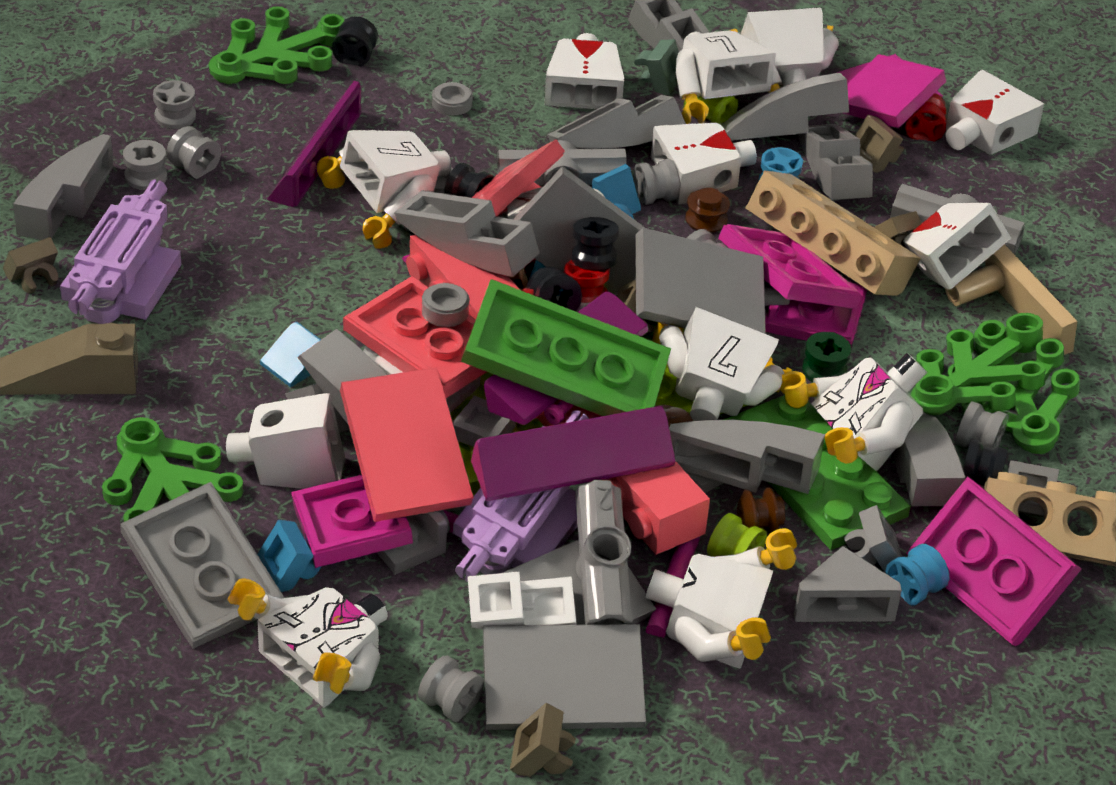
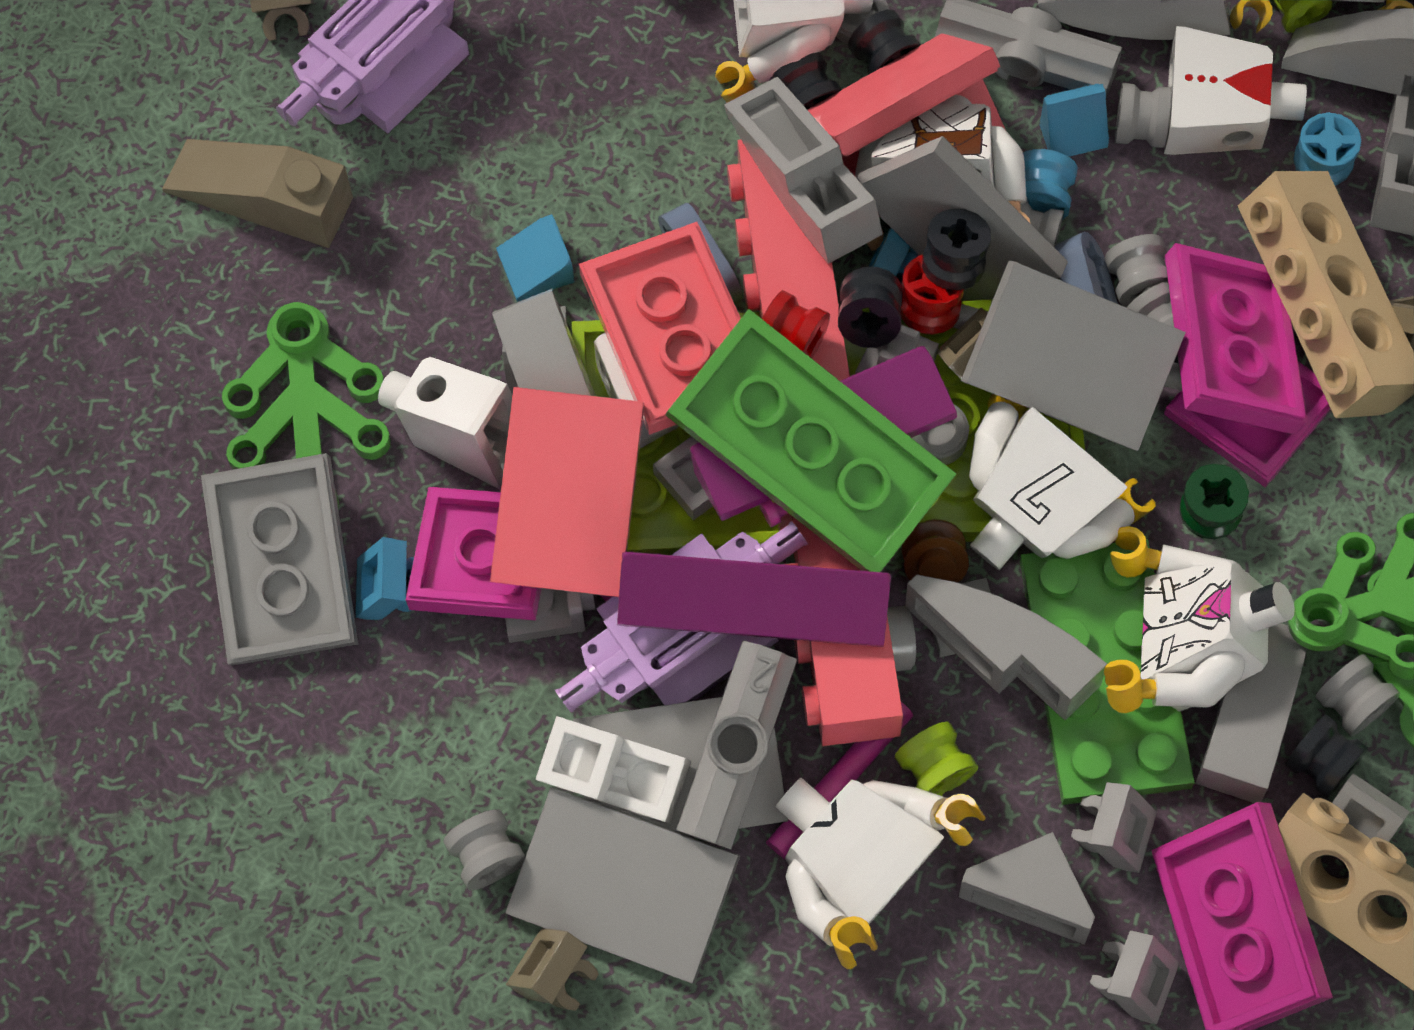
camera: 30 degrees right, 25 degrees up
(316, 637) = (362, 722): white torso -> none
(445, 305) = (709, 293): light grey tile -> none
(707, 209) = (1189, 186): reddish brown wheel -> none
(761, 512) = (990, 725): reddish brown wheel -> none
(919, 573) = (1141, 896): dark azure wheel -> none
(944, 619) = (1141, 976): none -> light grey tile

